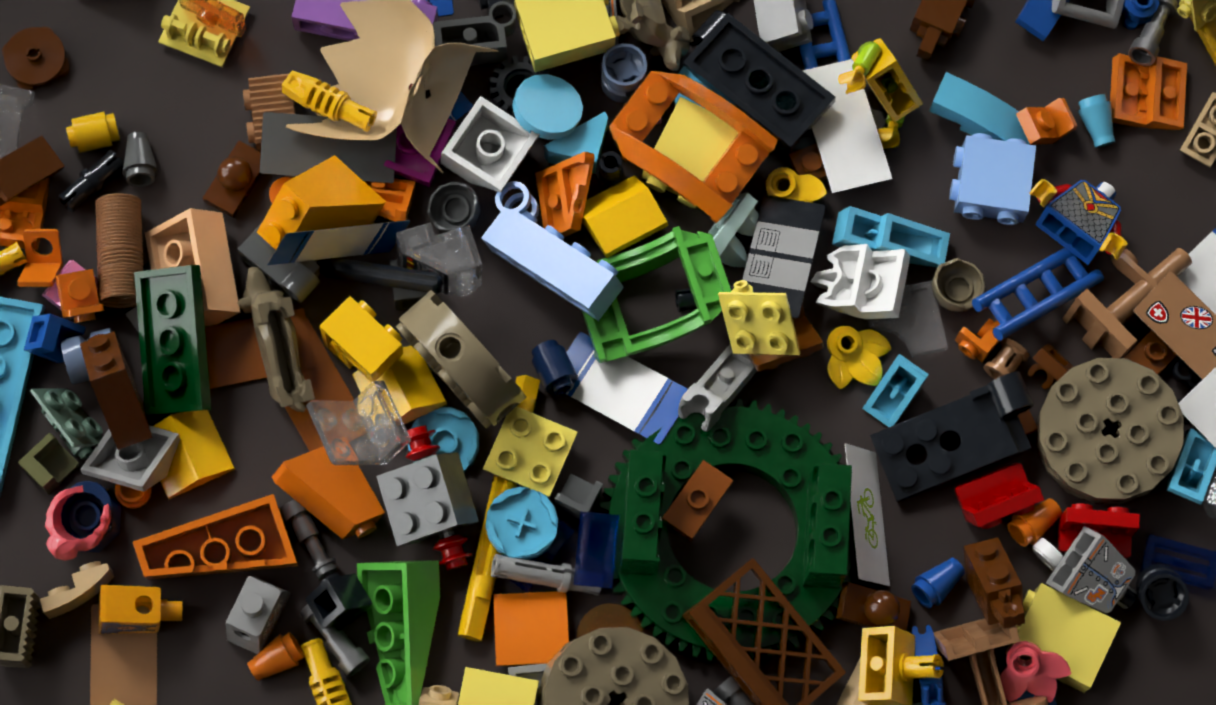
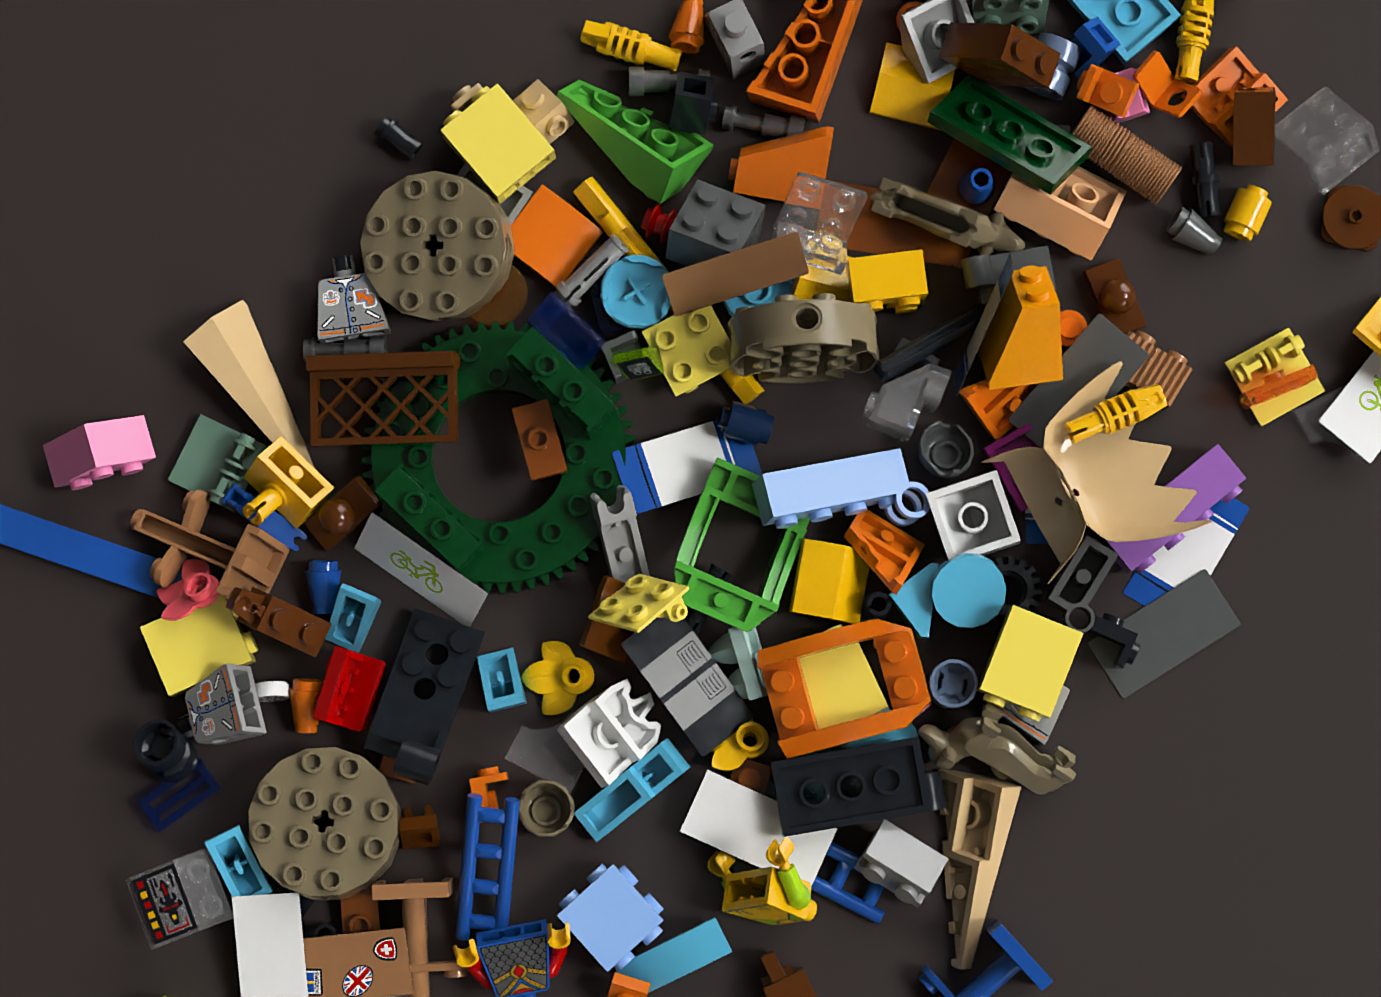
camera: 130 degrees right, 10 degrees up
(233, 345) = (971, 191): none -> blue cone
(450, 451) = (735, 273): none -> medium nougat sticker
(573, 477) = (640, 363): none -> slope
(940, 540) = (352, 617): none -> medium azure slope
(1007, 359) = (451, 794): medium nougat bush -> none
(1114, 524) = (246, 756): red bracket -> none

